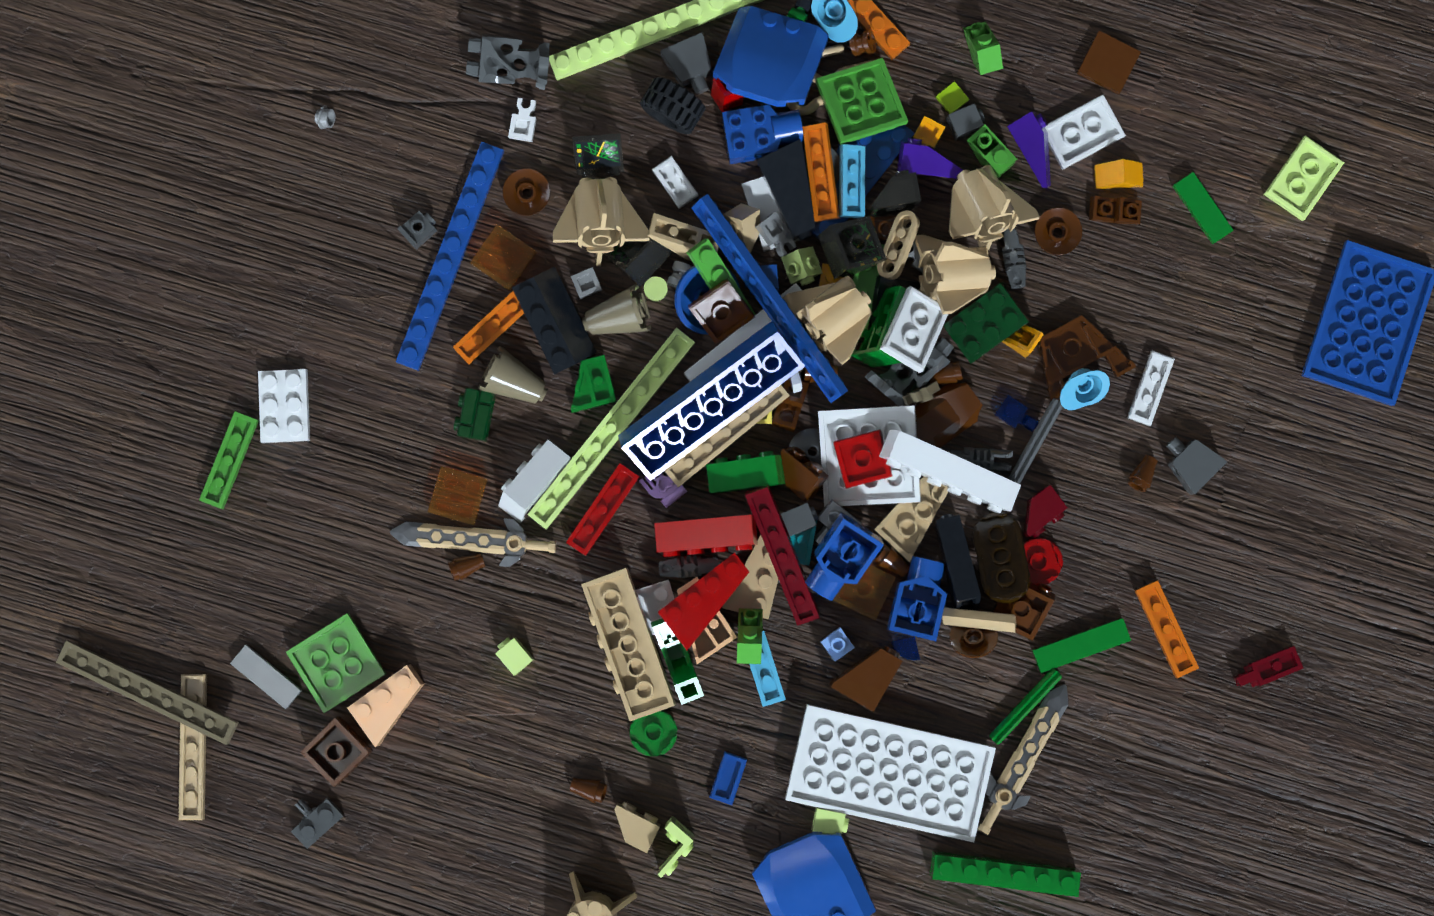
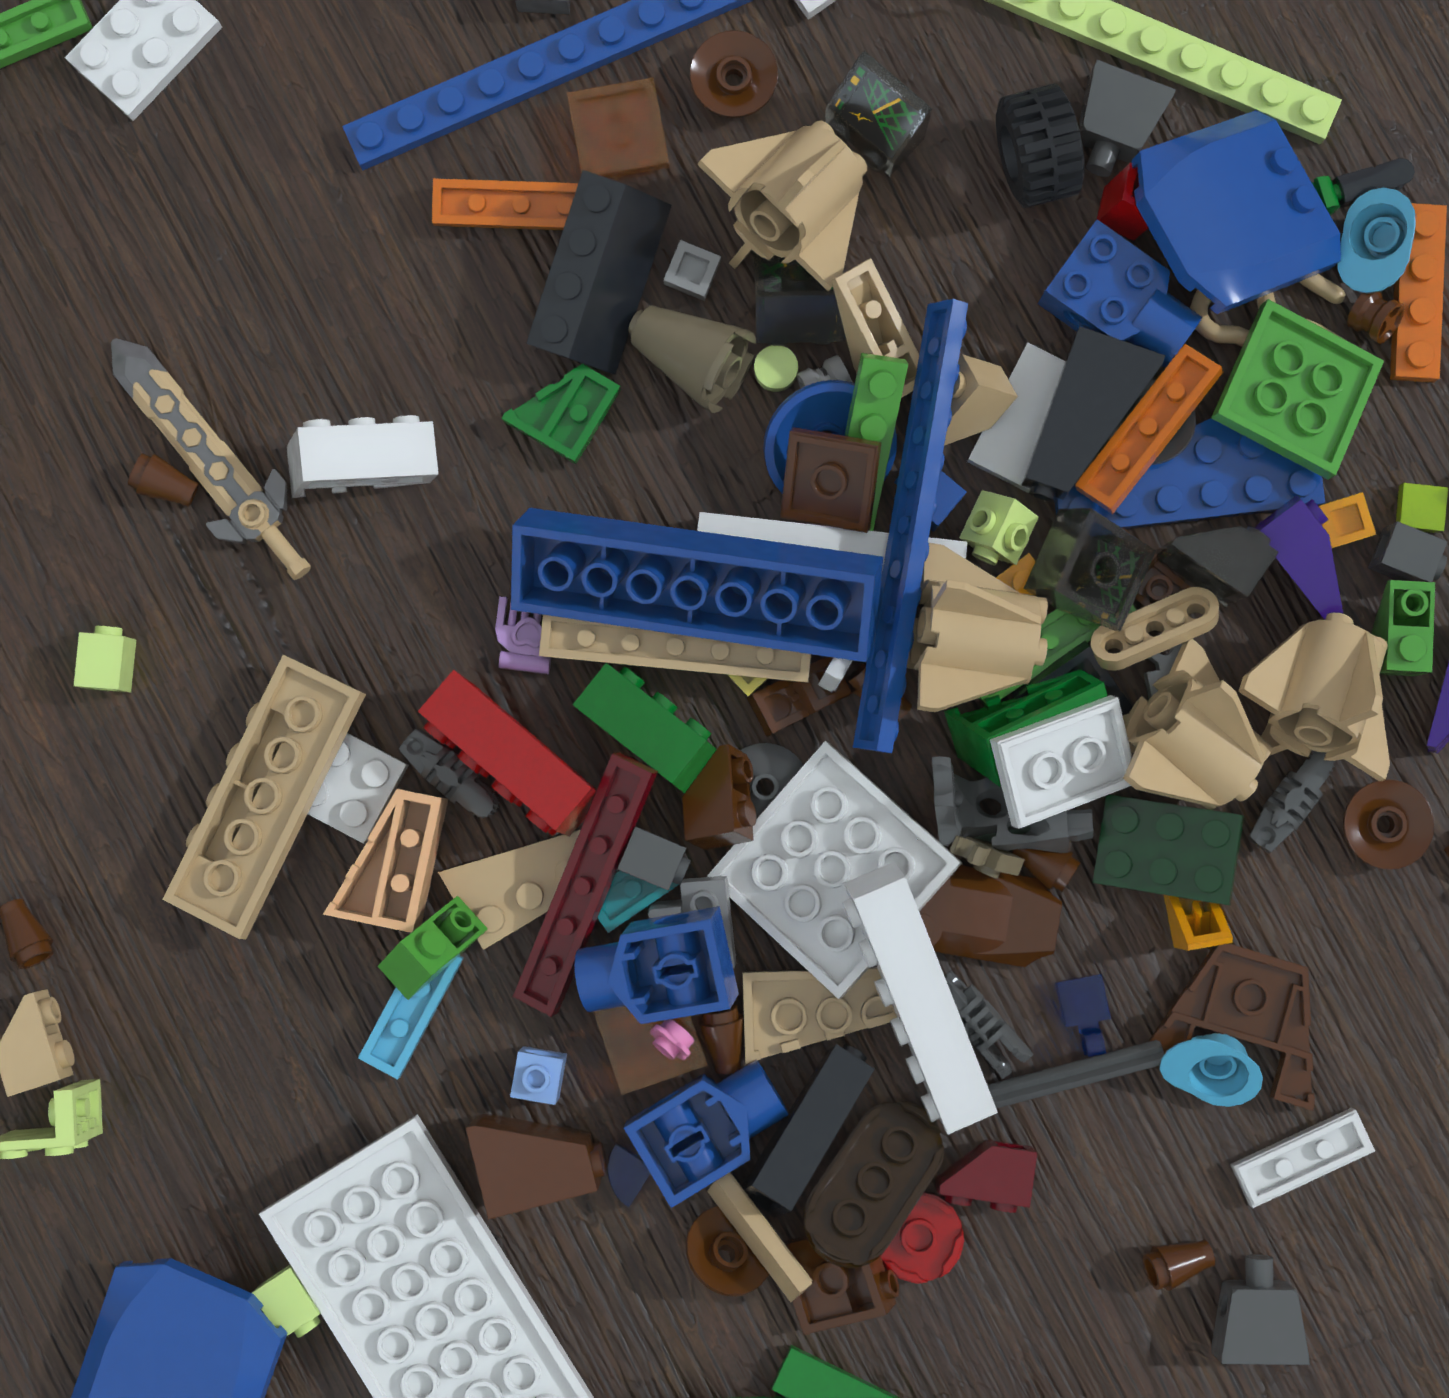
camera: 45 degrees right, 0 degrees up
(457, 495) = (245, 379): clear orange plate -> none
(475, 414) = (374, 296): dark green brick -> none
(512, 379) = (467, 296): dark tan cone -> none
(602, 509) = (413, 586): red plate -> none
(611, 426) = (546, 488): yellowish green plate -> none
(654, 733) = (182, 949): green tile -> none
(675, 182) = (941, 254): white plate -> none
(678, 663) = (310, 884): green arch -> none
(699, 604) = (406, 837): red wing -> none
(728, 778) = (220, 1104): blue tile -> none
(774, 231) = (1006, 444): light grey plate -> none
(851, 181) = (1178, 481): medium azure plate -> none
(861, 460) = (816, 861): red tile -> none
(873, 580) = (672, 1040): none -> bright pink plate

